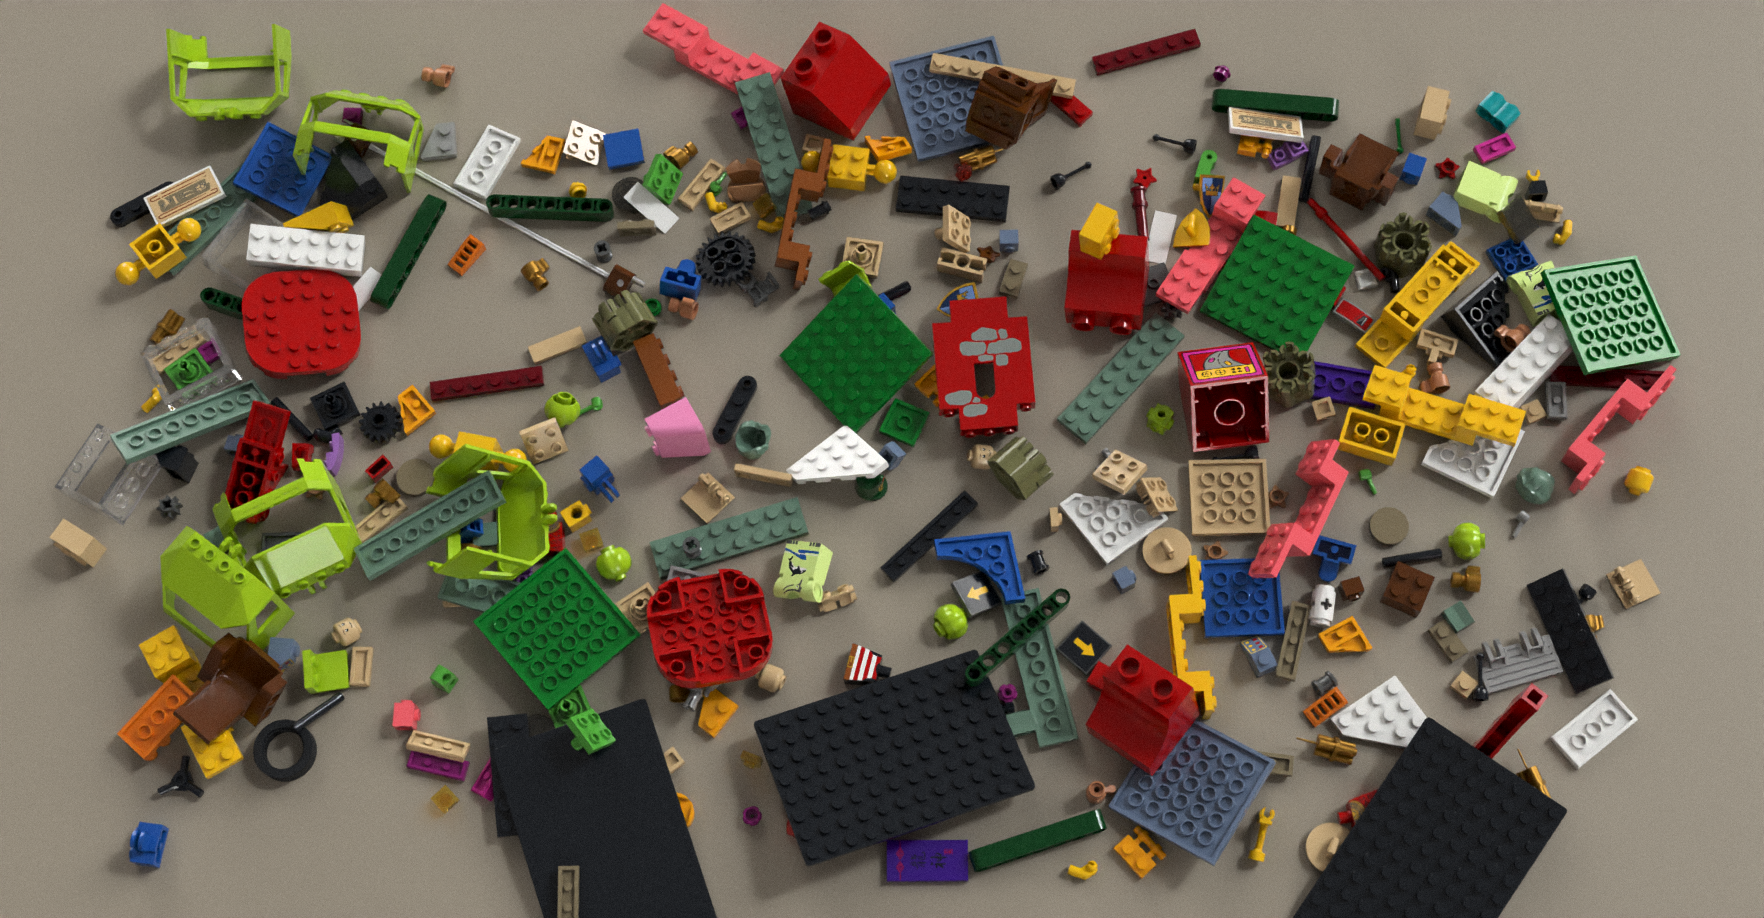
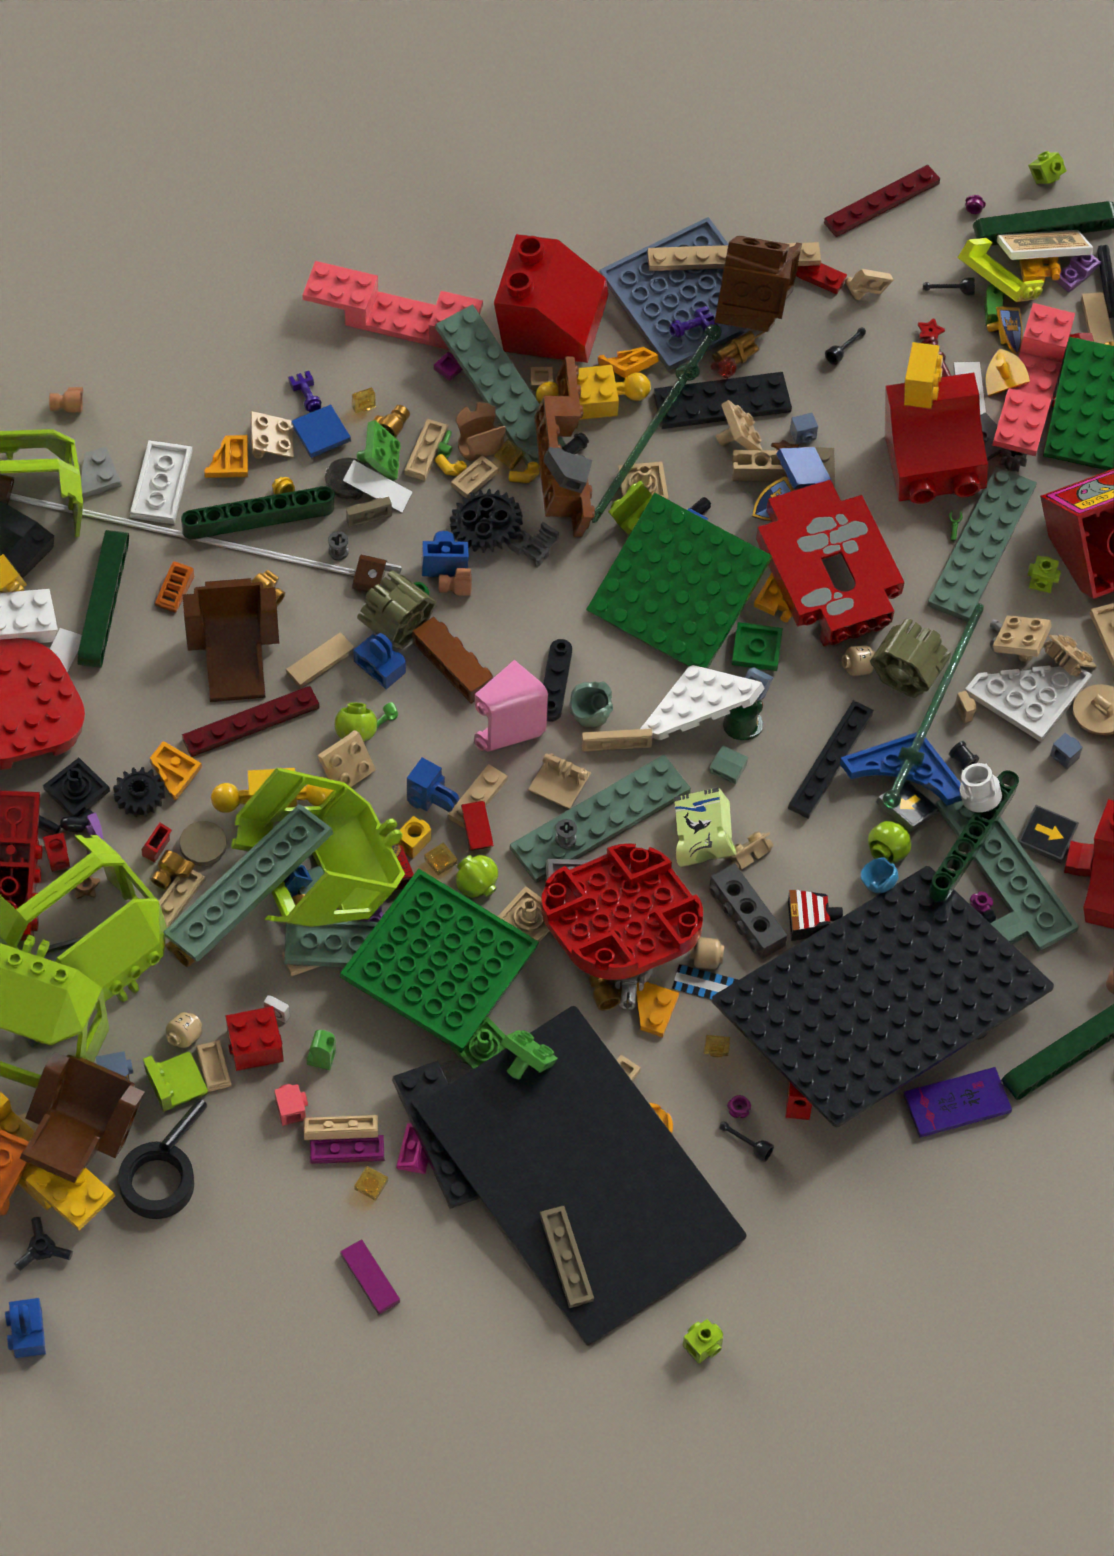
camera: 25 degrees left, 10 degrees down
(396, 654) = (254, 1038): none -> red brick
(419, 876) = (370, 1276): none -> magenta tile
(422, 633) = (280, 1008): none -> white tile
(493, 305) = (231, 624): none -> reddish brown piece
(624, 123) = (312, 402): none -> dark purple hinge
(628, 520) = (477, 825): none -> red slope
(639, 494) = (482, 789): none -> tan plate
(665, 130) = (363, 400): none -> clear yellow plate
(756, 857) = (762, 1149): none -> black hinge
(761, 700) = (700, 982): none -> sticker
(793, 238) = (568, 469): none -> dark grey slope
(826, 679) = (733, 880): none -> dark grey brick
(846, 519) = (728, 764): none -> sand green piece
(927, 169) = (684, 373): none -> clear green bar
(931, 649) = (879, 875): none -> dark azure hair
(934, 129) = (702, 318): none -> dark purple hinge
(991, 554) = (911, 755): none -> clear green bar
(992, 278) = (802, 466): none -> tile
(1032, 601) = (979, 788): none -> white piece
(1102, 123) = (868, 281): none -> tan plate
(1103, 355) = (955, 525): none -> bright green hand
(1215, 141) = (975, 257): none -> neon yellow panel
(1293, 55) = (1047, 167): none -> lime brick

